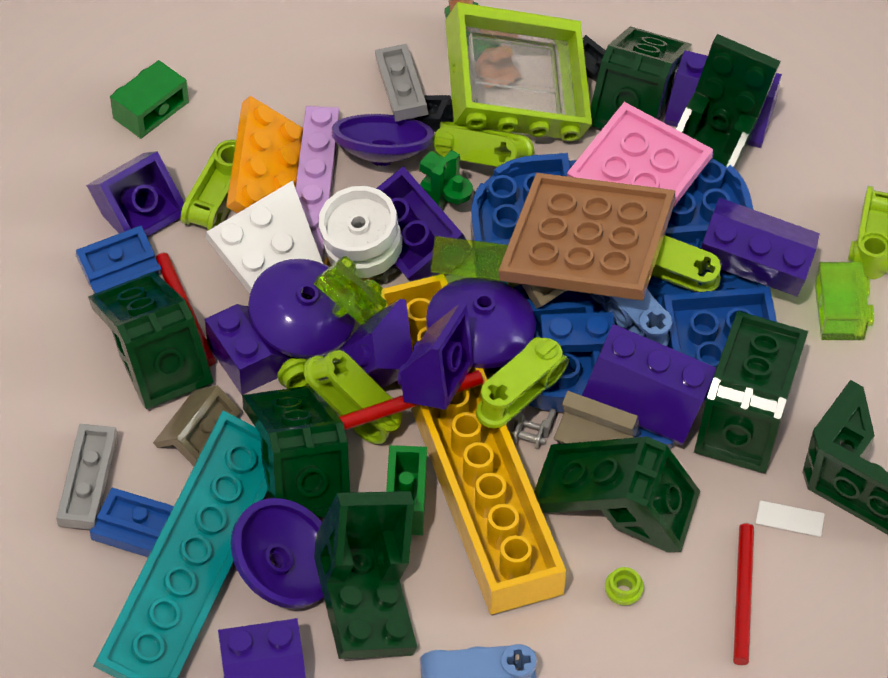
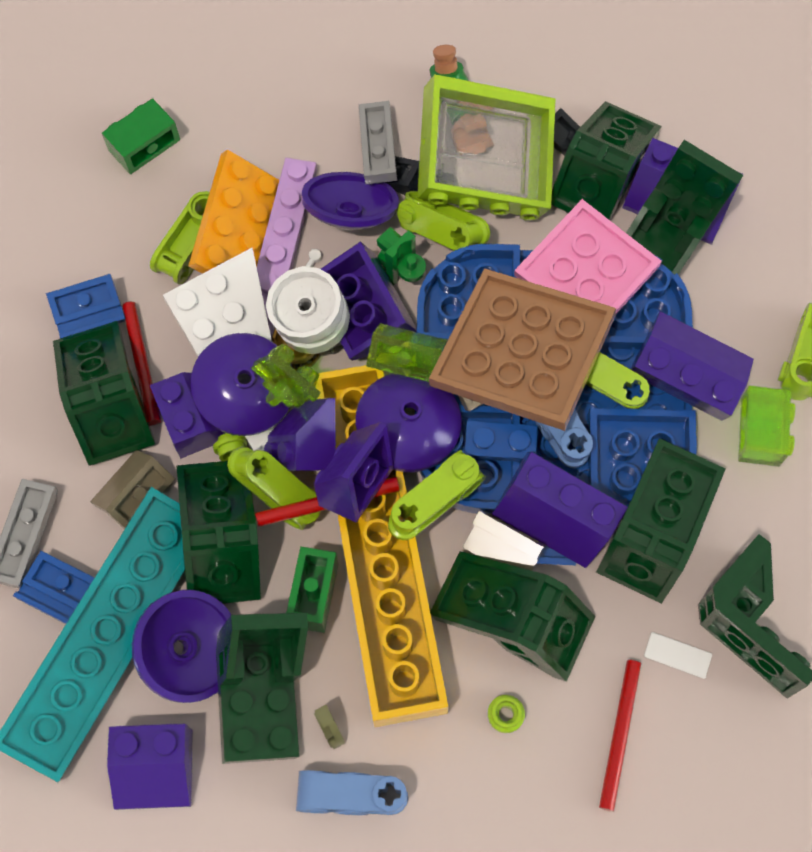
camera: 10 degrees right, 15 degrees up
(138, 195) = (114, 239): dark purple slope -> none
(443, 615) = (329, 727): none -> olive tile
(544, 428) = (456, 531): light grey piece -> none

